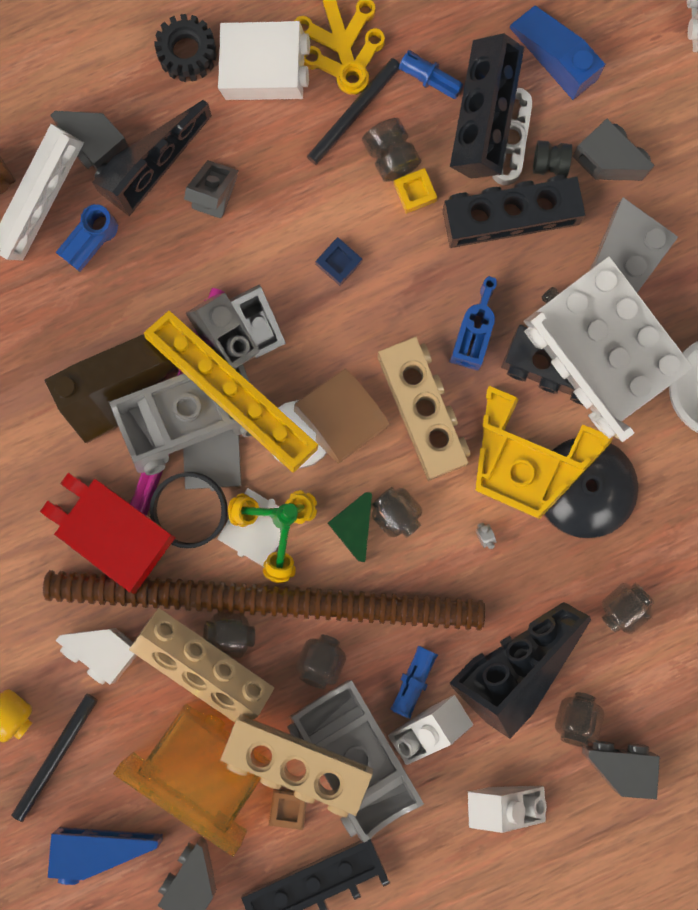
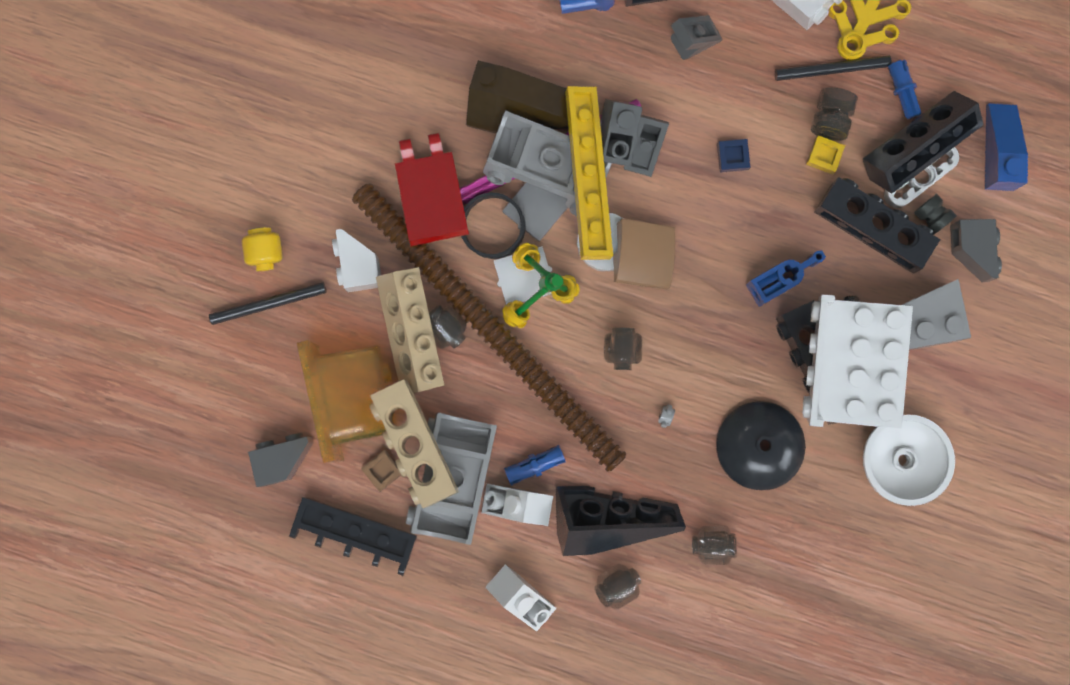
camera: 40 degrees right, 0 degrees up
(87, 852) = (233, 379): blue slope -> none
(321, 661) = (487, 397): clear smoke head -> none
(353, 526) = (587, 330): dark green slope -> none
(414, 356) = (710, 252): tan brick -> none
(522, 471) = (729, 398): yellow wing -> none
(628, 771) = (617, 647): dark grey slope -> none

